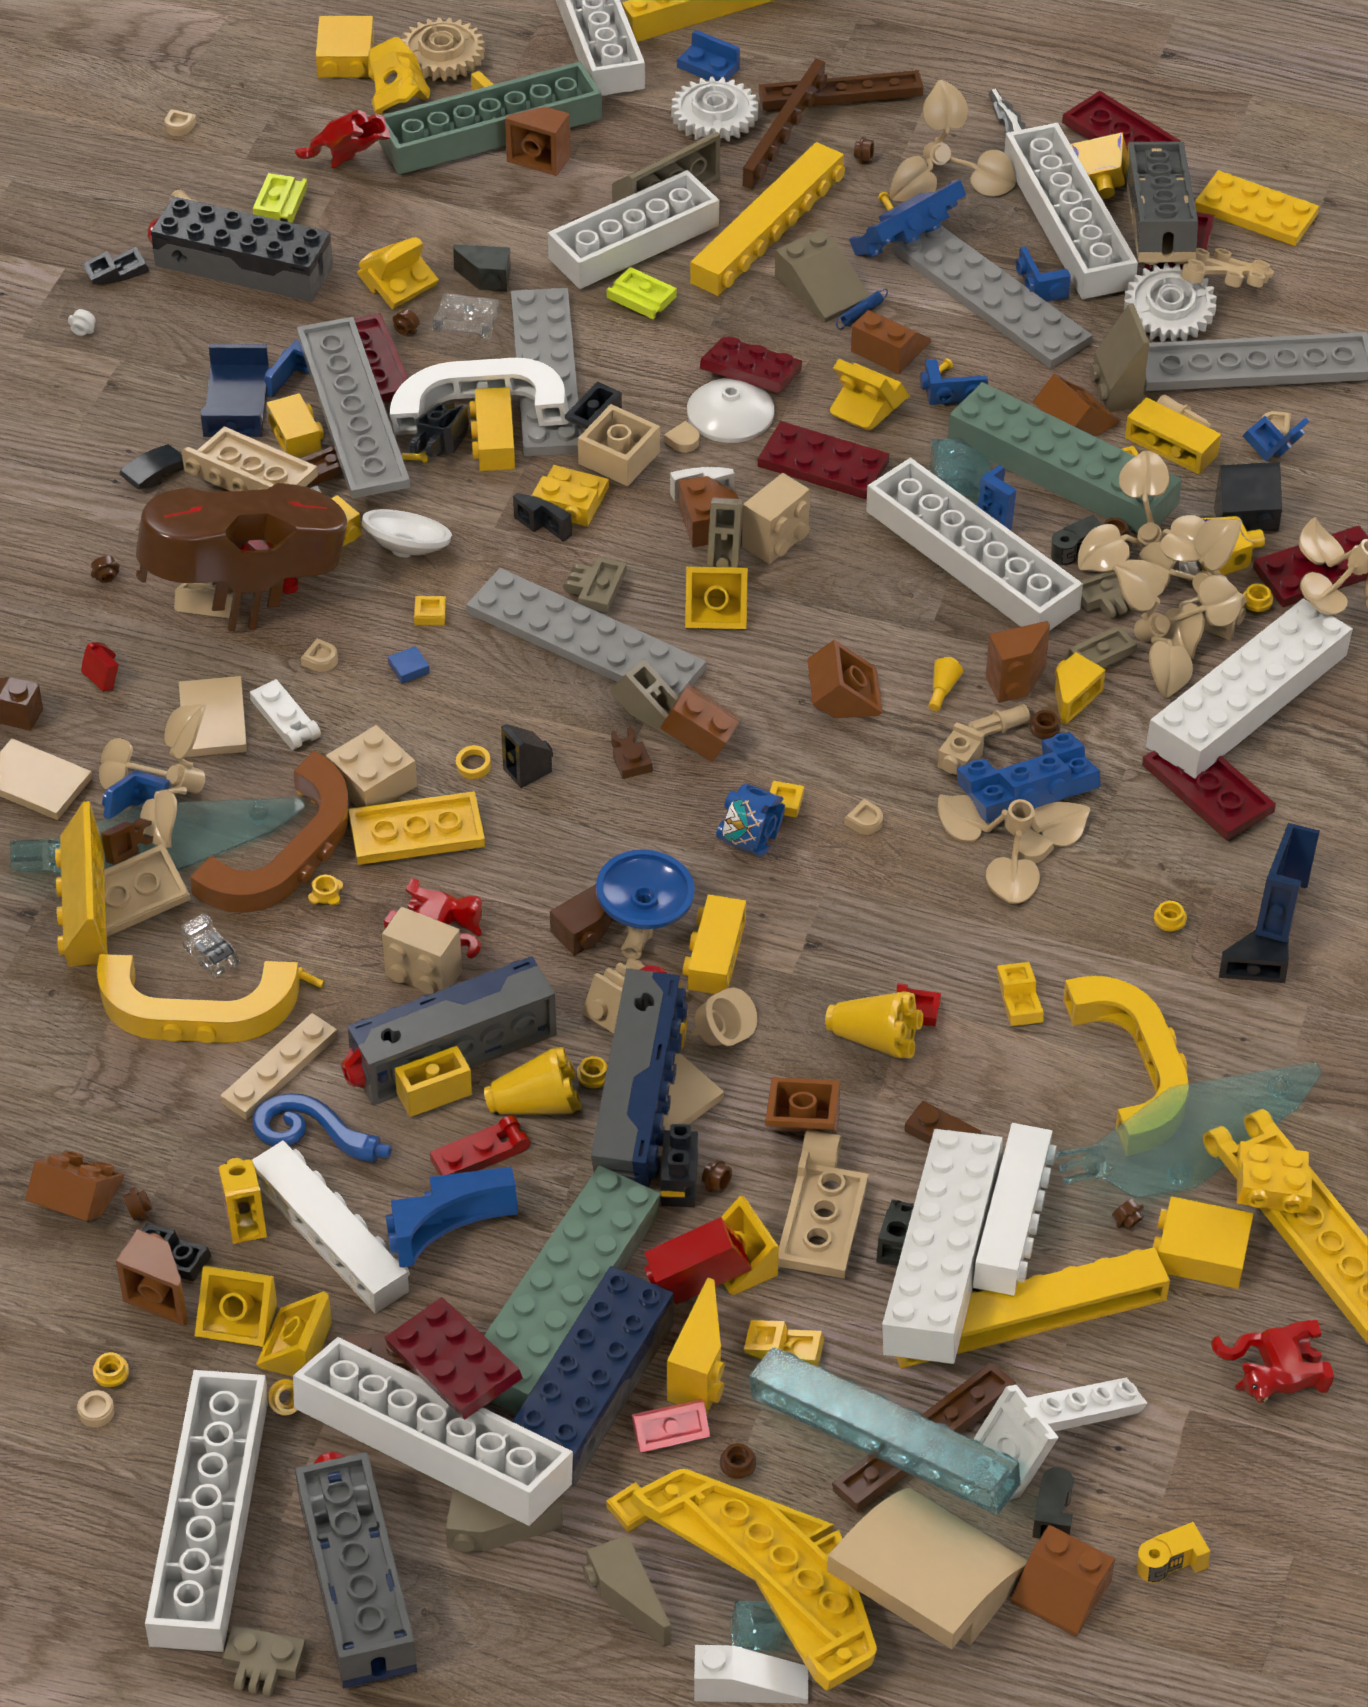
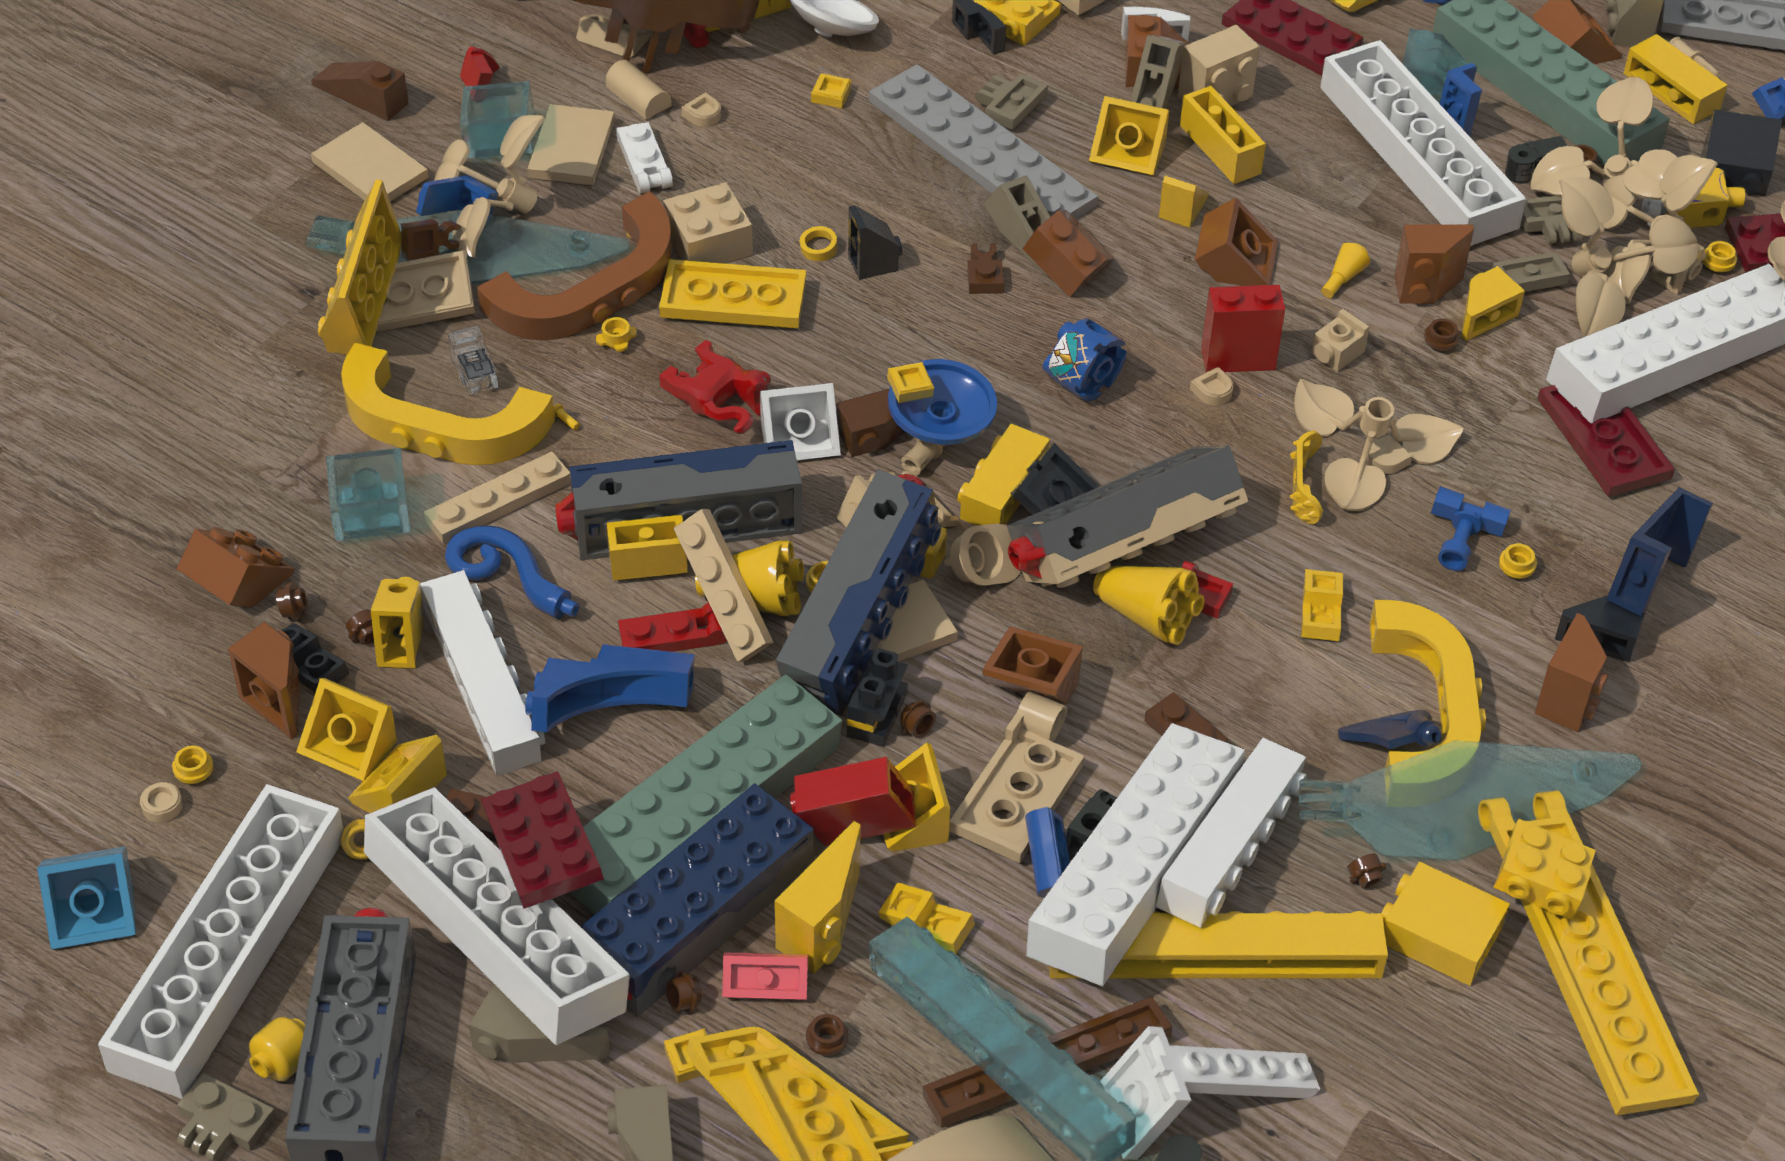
camera: 15 degrees right, 0 degrees up
(71, 1505) = (87, 897): none -> dark azure slope
(139, 706) = (489, 112): none -> clear light blue brick
(168, 1091) = (367, 494): none -> clear light blue brick
(210, 1212) = (360, 627): none -> reddish brown plate
(253, 649) = (637, 89): none -> tan brick
(292, 1589) = (277, 1049): none -> yellow head
(408, 664) = (789, 136): blue tile -> none
(421, 951) = (684, 411): tan brick -> none
(515, 1099) = (723, 585): none -> tan plate
(522, 933) = (803, 416): none -> white slope
(607, 1456) = (683, 992): none -> reddish brown plate
(614, 878) = (910, 382): none -> yellow tile
(769, 948) = (1051, 481): none -> black plate
(781, 651) = (1181, 201): none -> yellow slope
(792, 796) = (1138, 347): yellow plate -> none
(798, 578) = (1222, 134): none -> yellow brick
(836, 955) = (1126, 516): none -> dark grey piece
(867, 1264) = (1047, 847): none -> blue brick
(878, 760) = (1243, 328): none -> red brick
(976, 906) = (1304, 503): none -> yellow piece
(1002, 720) = (1395, 320): tan axle -> none
(1040, 781) = (1424, 388): blue bracket -> none
(1115, 1089) = (1395, 730): none -> dark blue arm
(1117, 889) = (1467, 520): none -> blue bar
(1249, 1009) = (1574, 678): none -> dark orange slope
(1283, 1359) = (1496, 1074): red animal -> none

